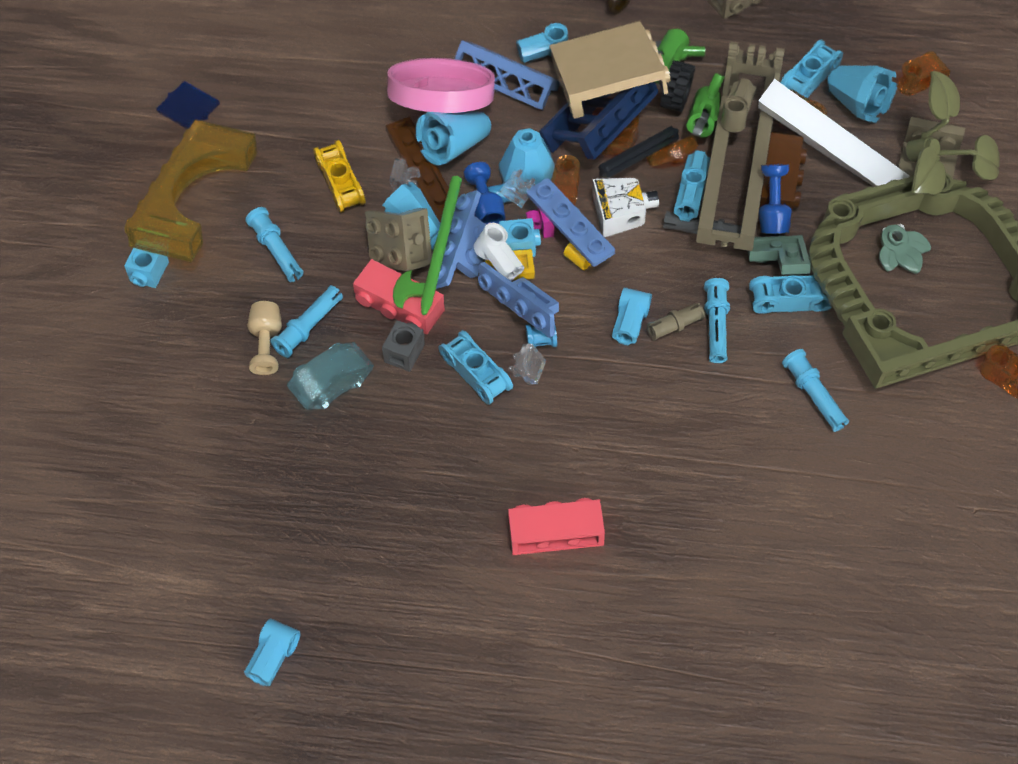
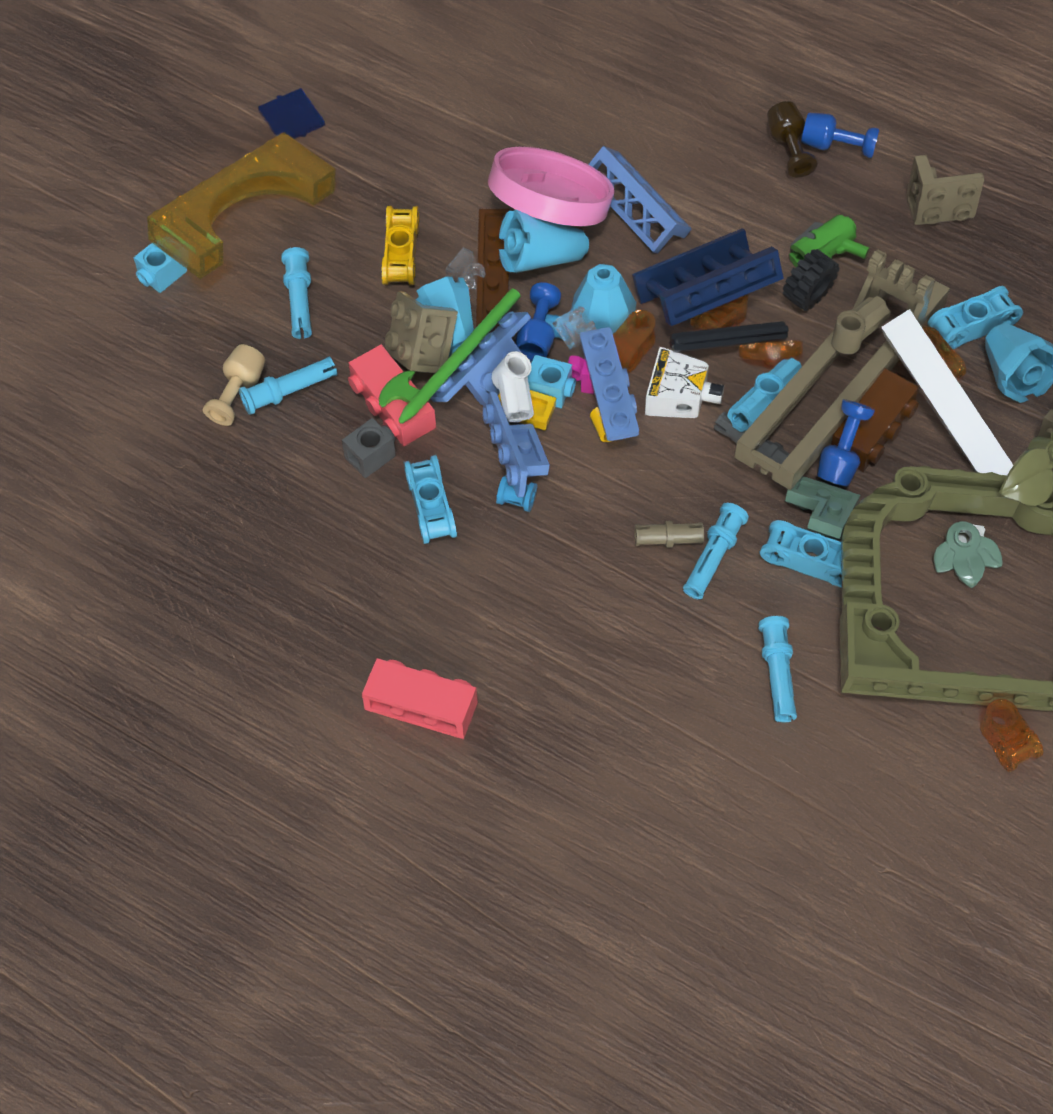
camera: 25 degrees right, 0 degrees up
(275, 644) = (79, 698): medium azure piece -> none
(330, 375) = (276, 449): clear light blue brick -> none
(528, 364) = (487, 518): clear tile -> none
(538, 45) = (704, 182): medium azure piece -> none
(607, 64) = (741, 227): tan panel -> none
(632, 309) = (629, 502): medium azure piece -> none
(705, 108) = (822, 317): bright green piece -> none

